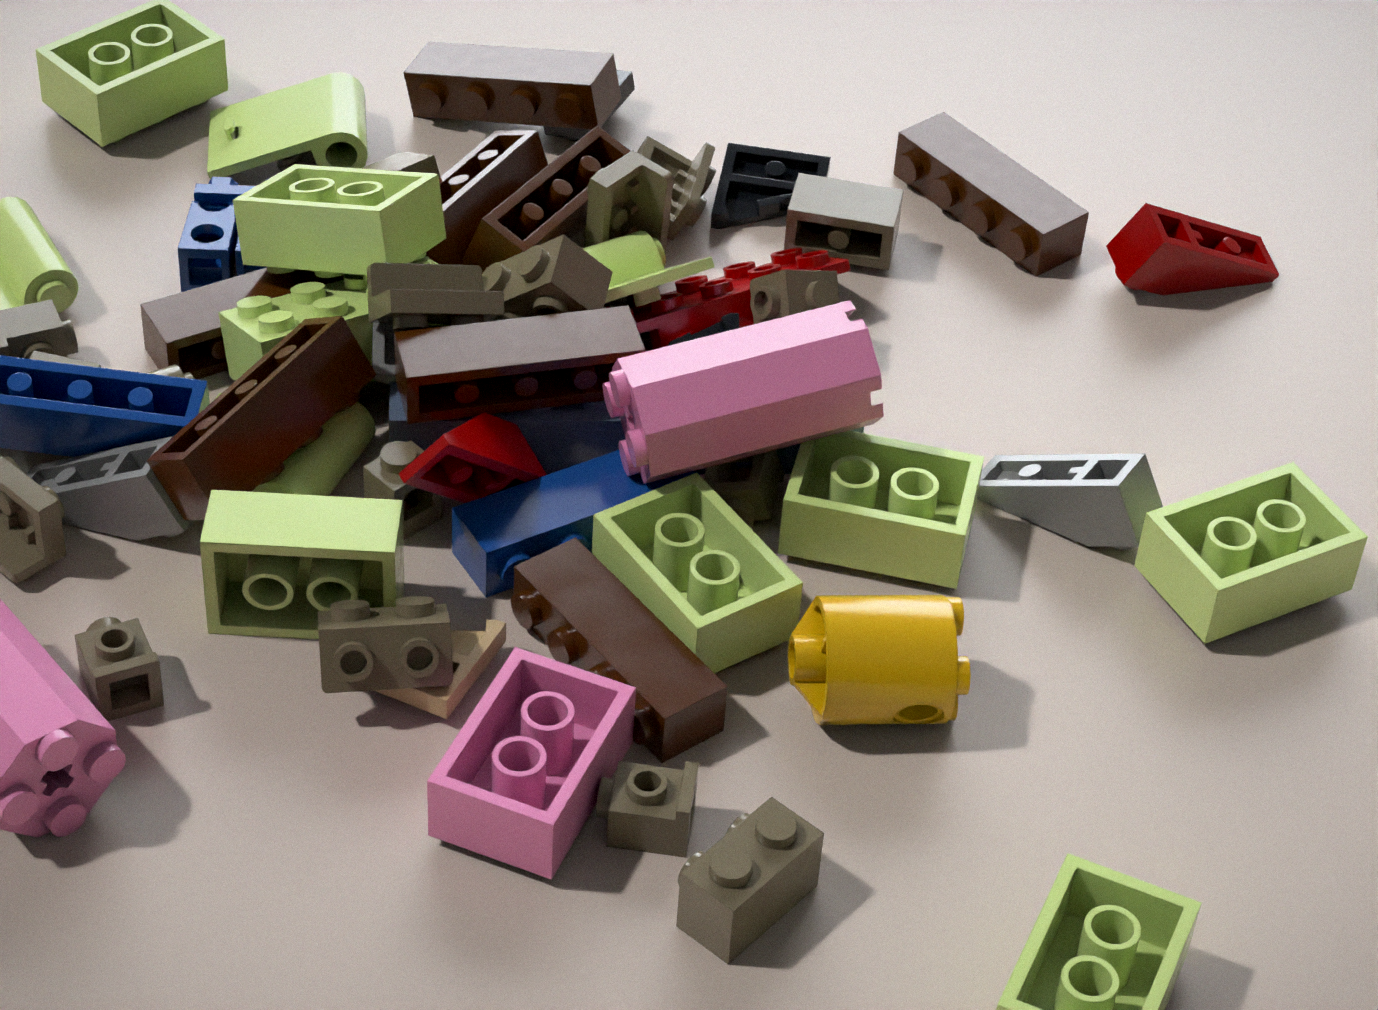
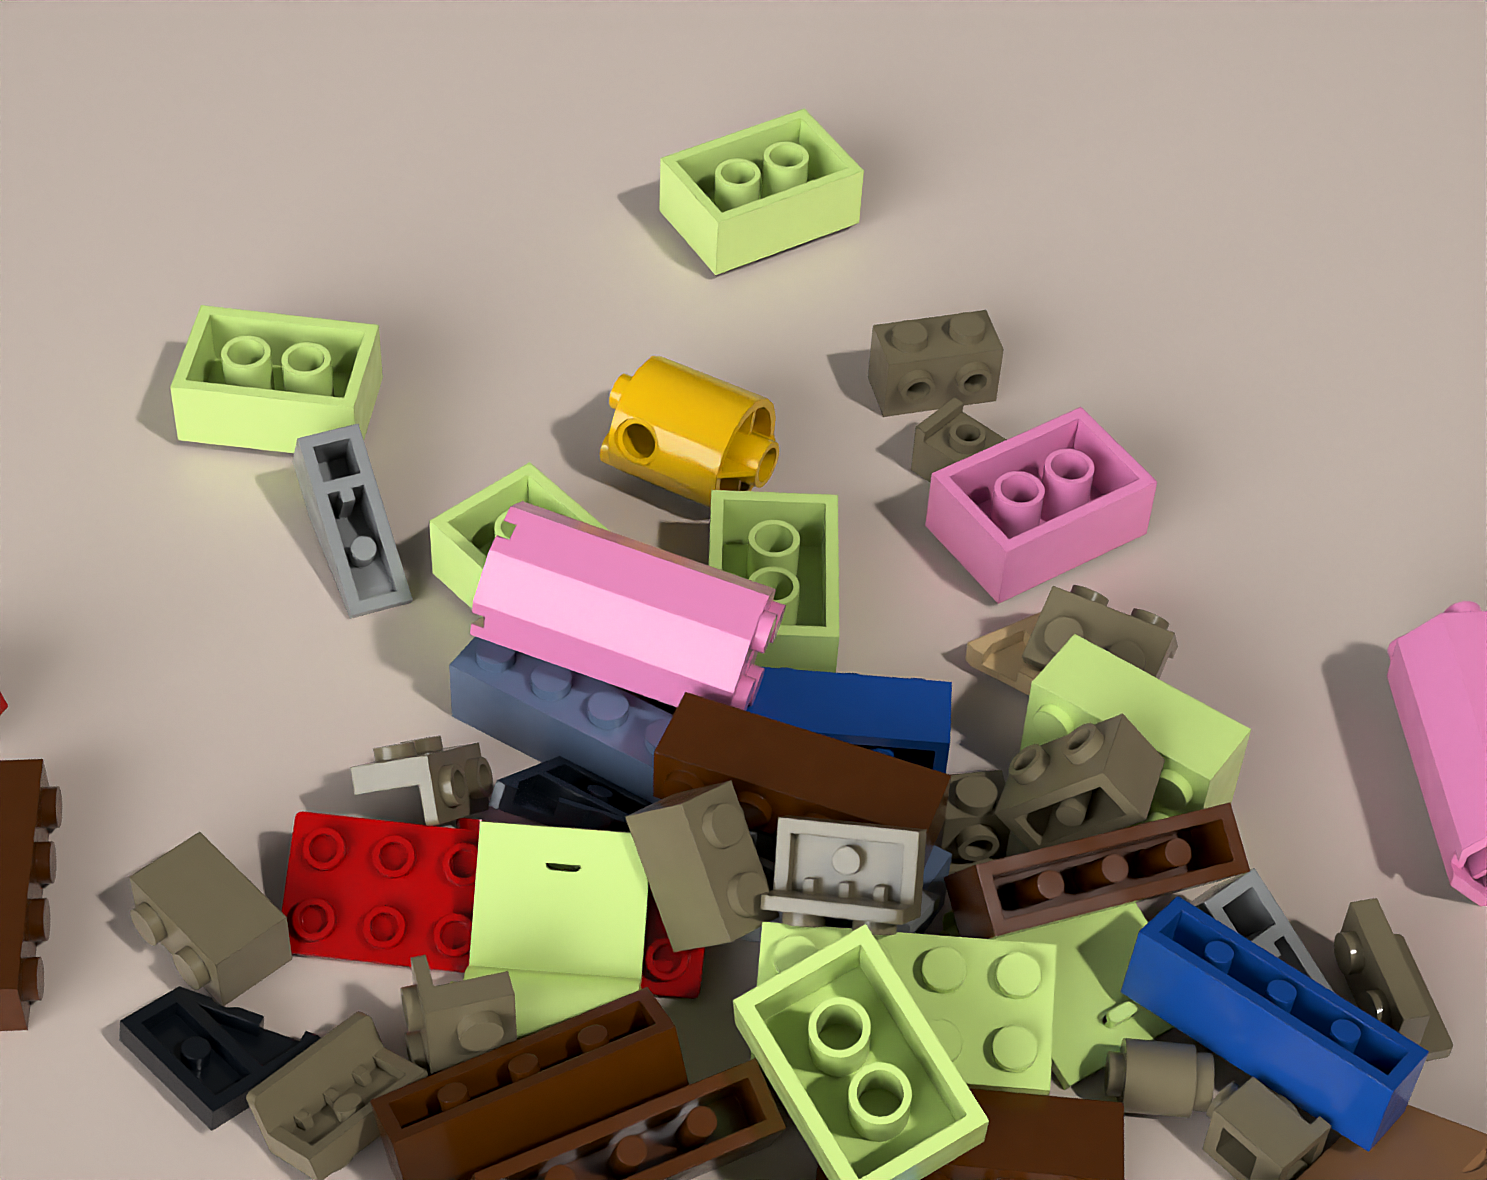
camera: 145 degrees left, 5 degrees up
(117, 652) = (1342, 777): dark tan brick -> none
(311, 452) = (1080, 784): none -> dark tan brick
(474, 461) = (943, 711): red slope -> none
(608, 631) = (886, 576): reddish brown brick -> none

